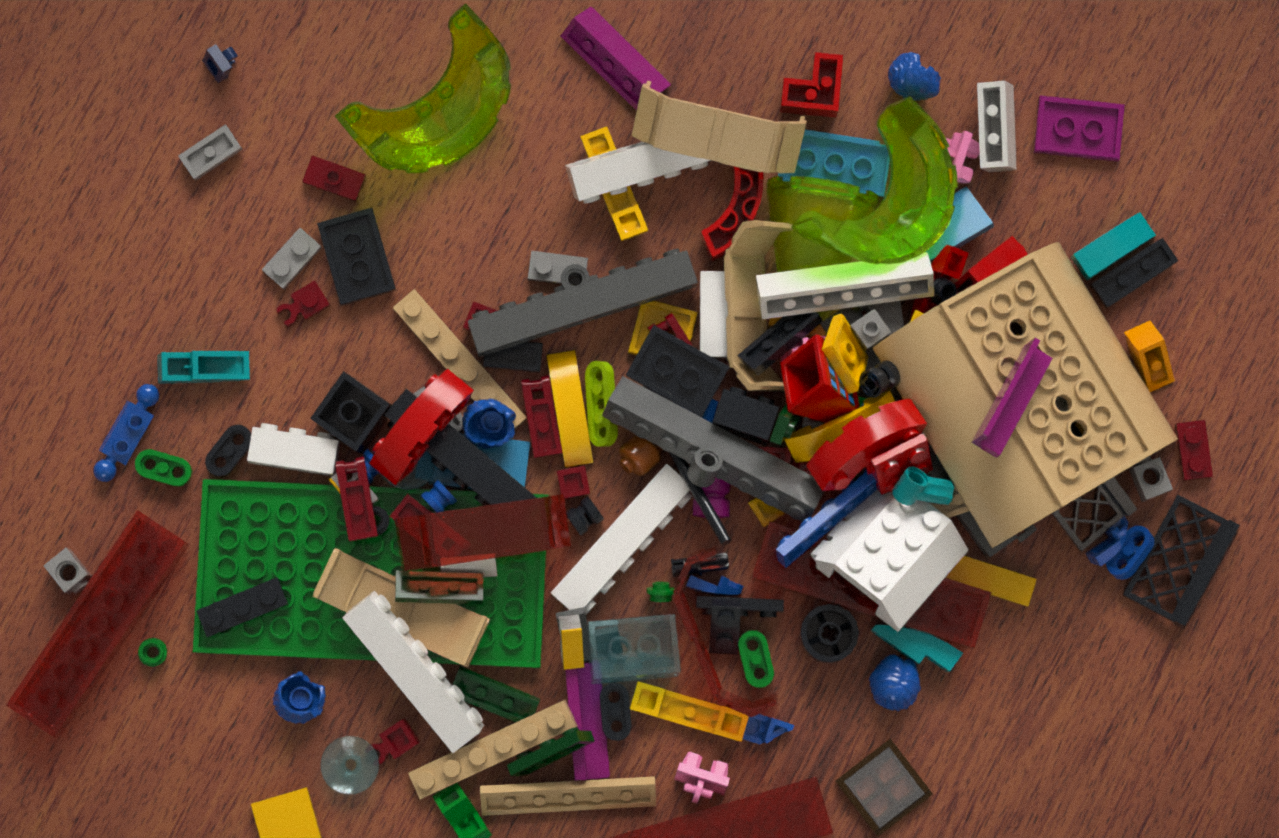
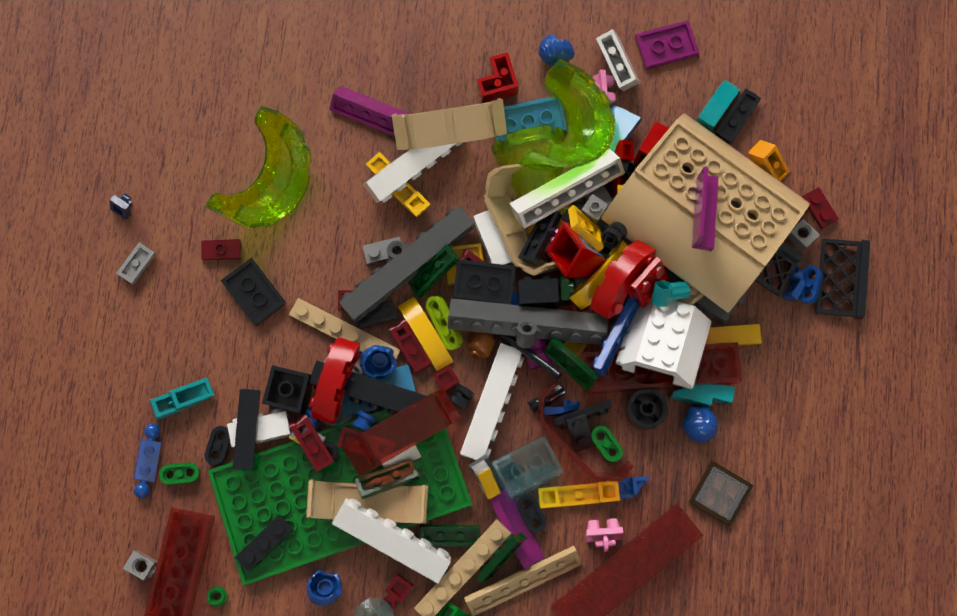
camera: 20 degrees left, 5 degrees down
(276, 445) = (246, 429): none -> black tile
(291, 258) = (213, 309): light grey plate -> none
(307, 302) = (233, 332): dark red plate -> none
(614, 327) = (433, 271): none -> dark green plate
(660, 592) = (529, 425): green plate -> none
(742, 208) = (483, 164): red brick -> none
(749, 533) = (571, 364): none -> dark green plate

